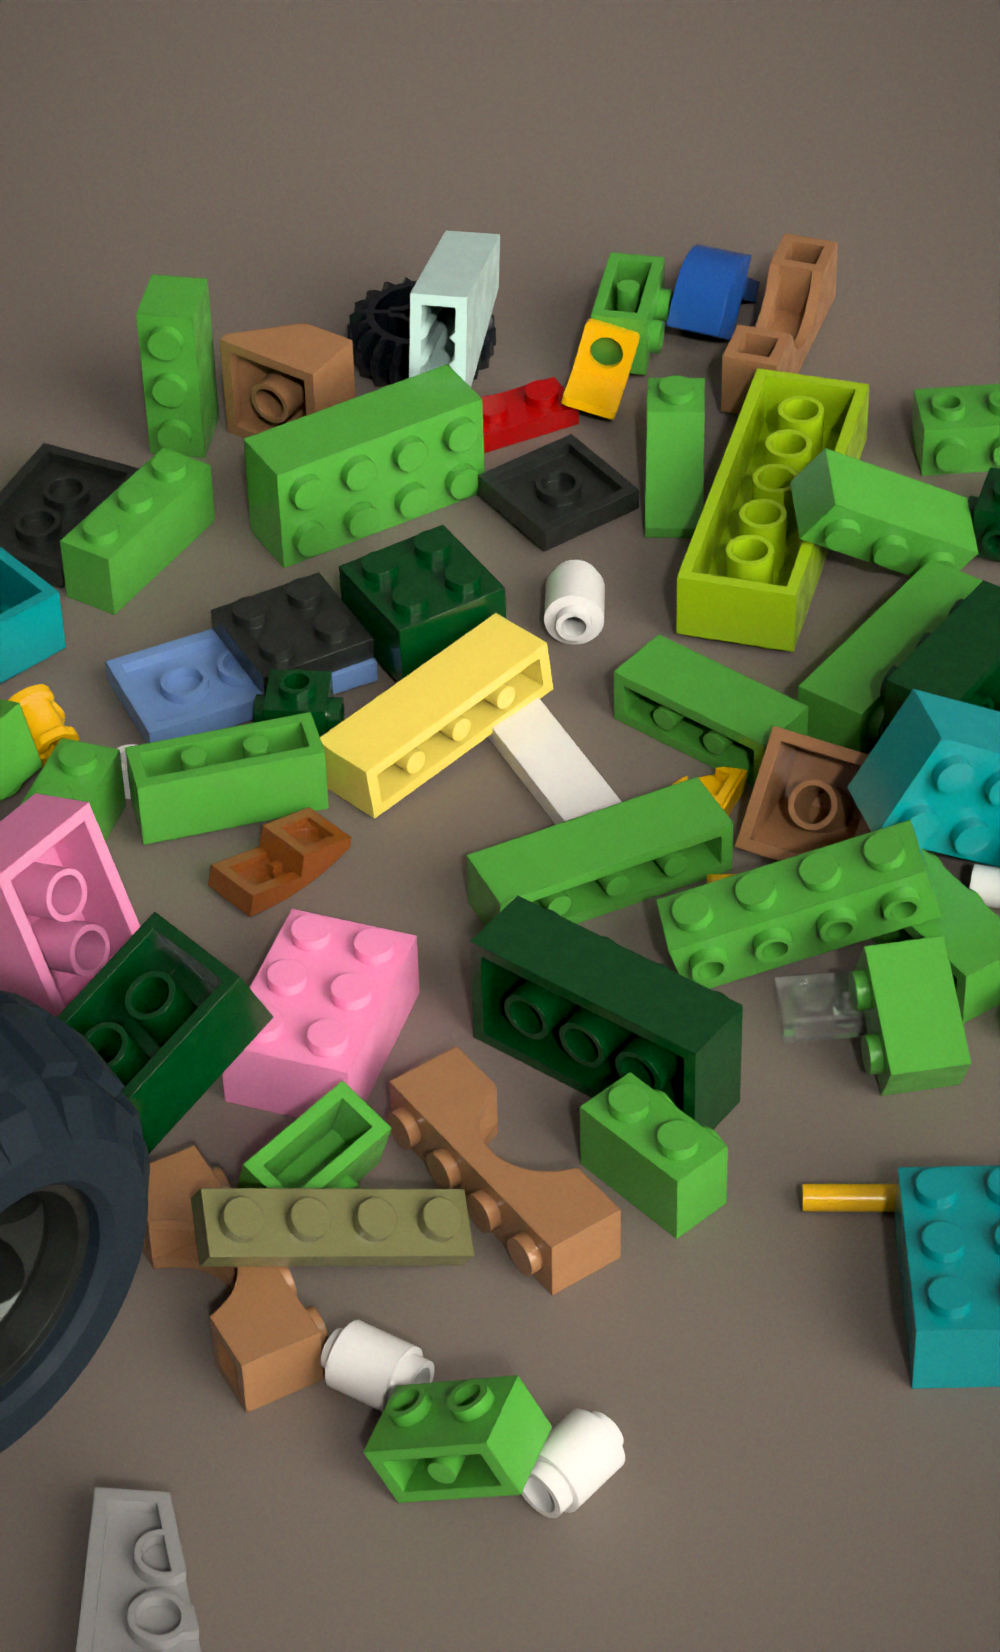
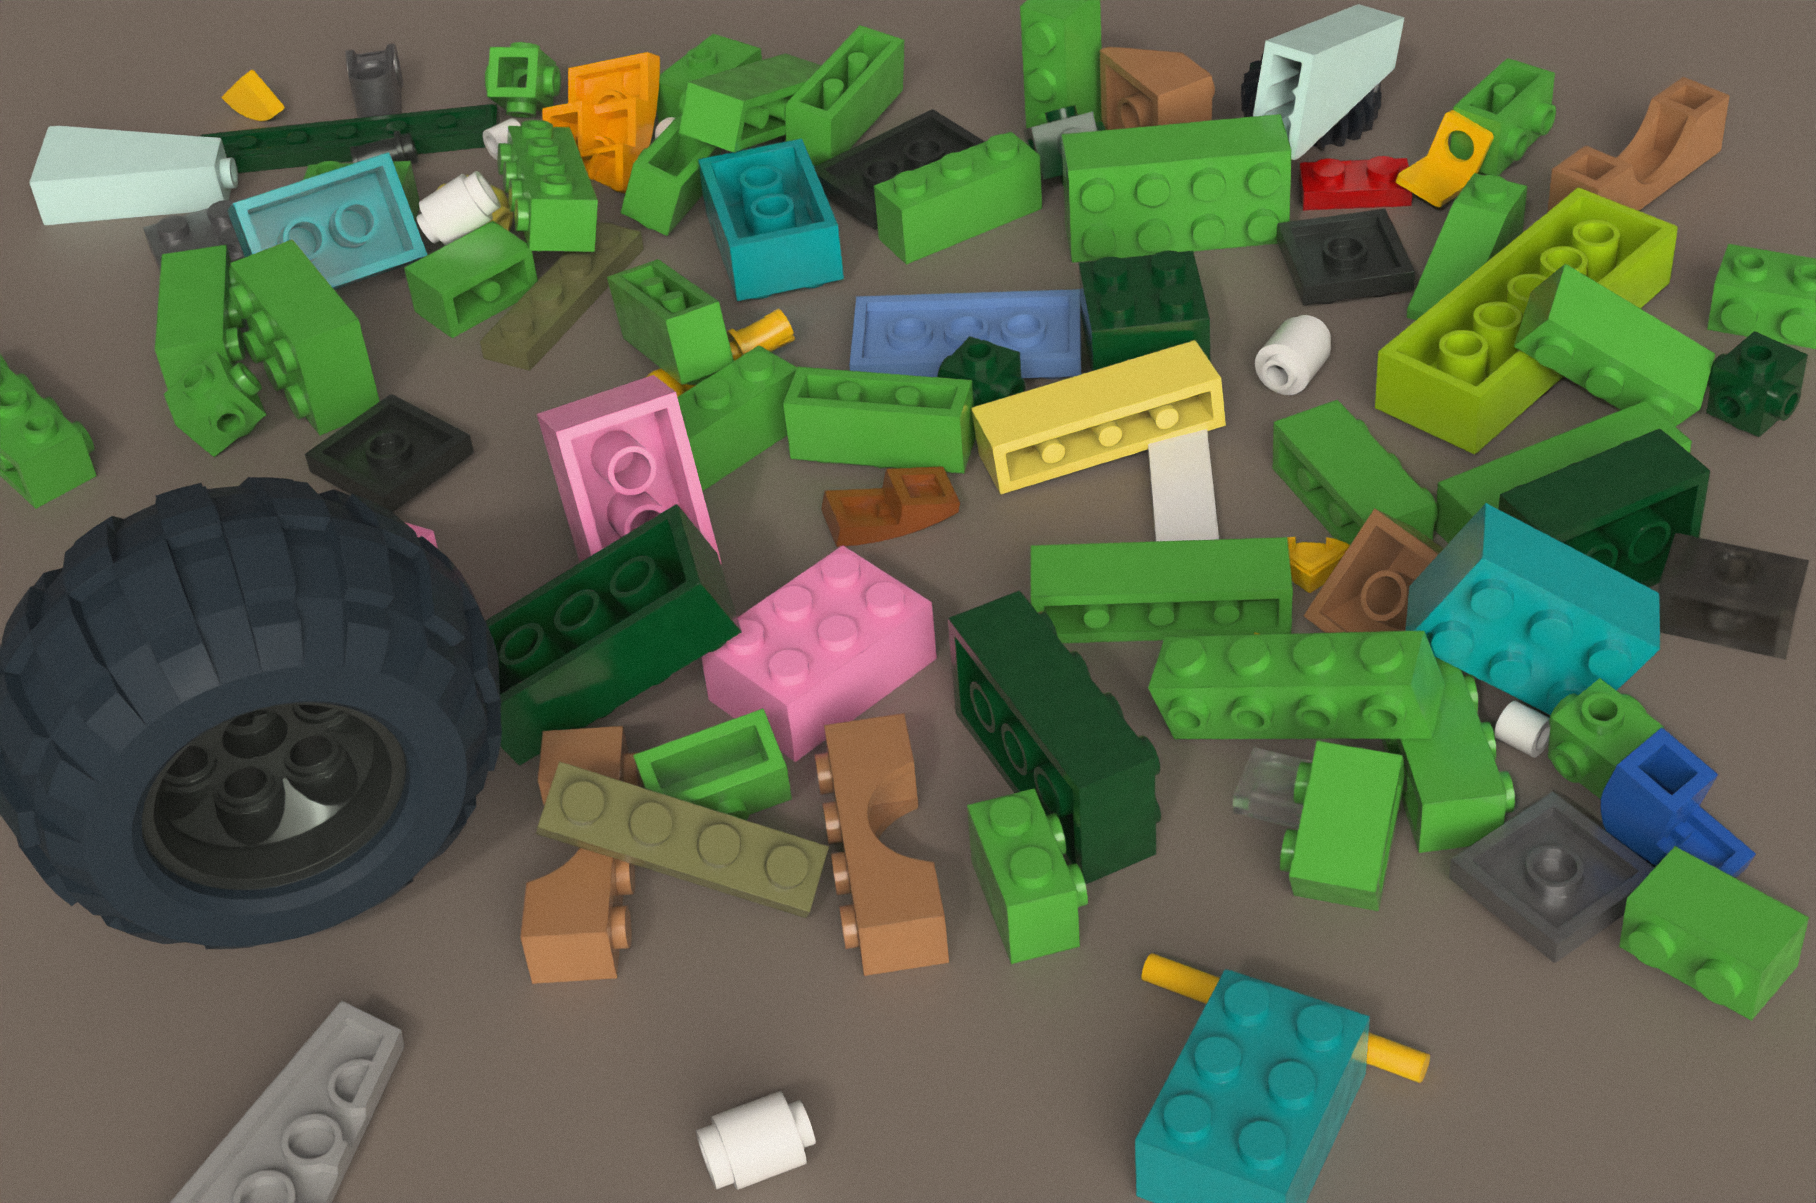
camera: 30 degrees right, 0 degrees up
(43, 719) = (753, 324): yellow bush -> none
(217, 439) = (1047, 138): none -> dark green brick
(292, 629) = (1023, 310): pearl dark grey plate -> none
(371, 1363) = (649, 985): white brick -> none
(458, 1439) = (657, 1077): bright green brick -> none
(711, 291) = (1591, 113): blue brick -> none

